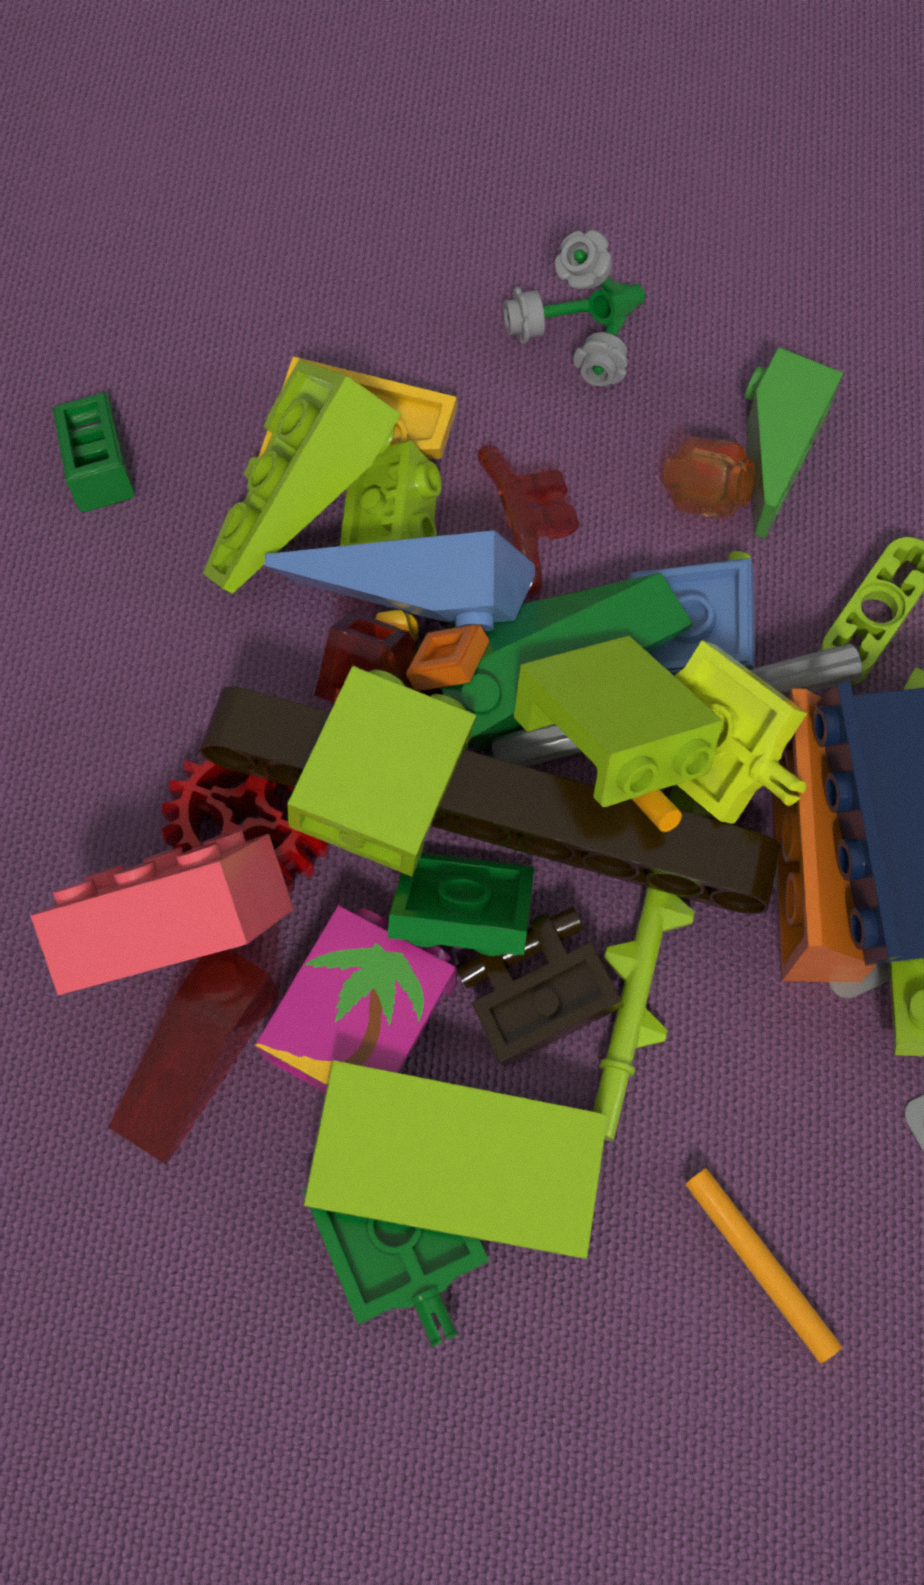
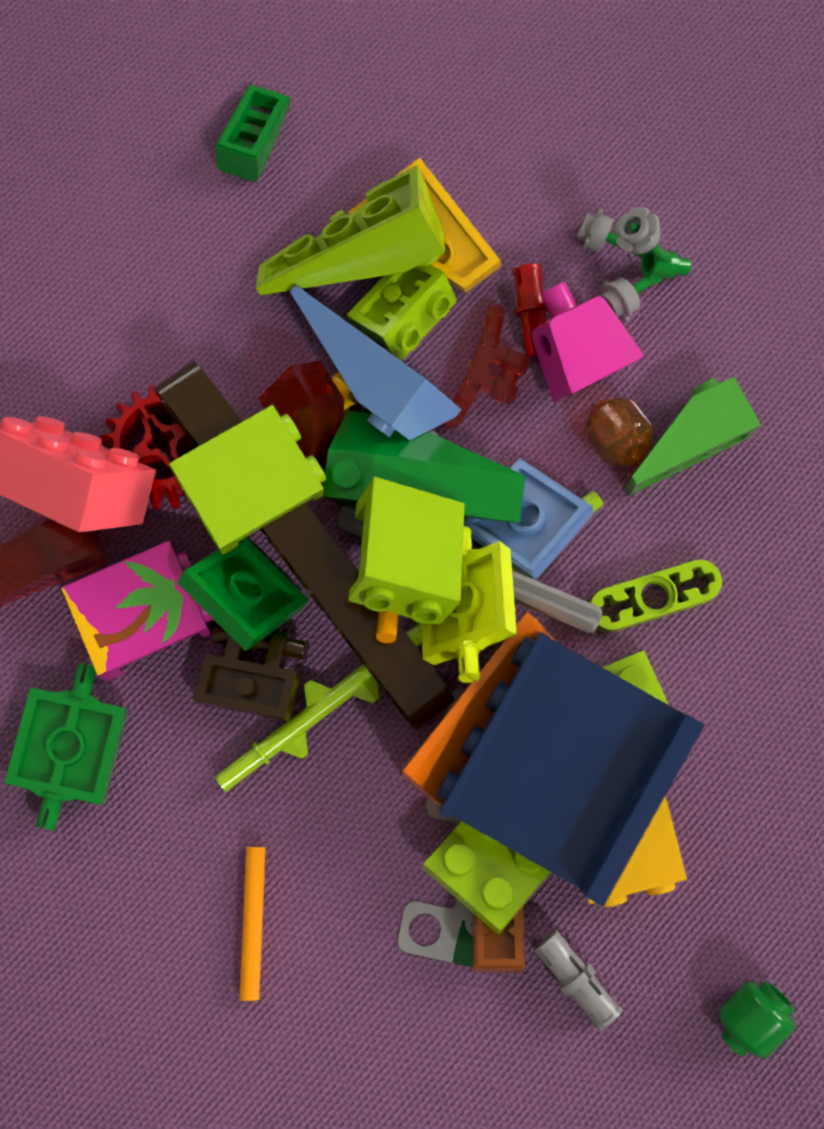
camera: 30 degrees right, 10 degrees up
(447, 657) = (346, 436): orange tile -> none
(456, 1160) = (121, 737): lime tile -> none
(524, 425) = (531, 306): none -> red axle
(603, 417) = (580, 342): none -> dark pink torso

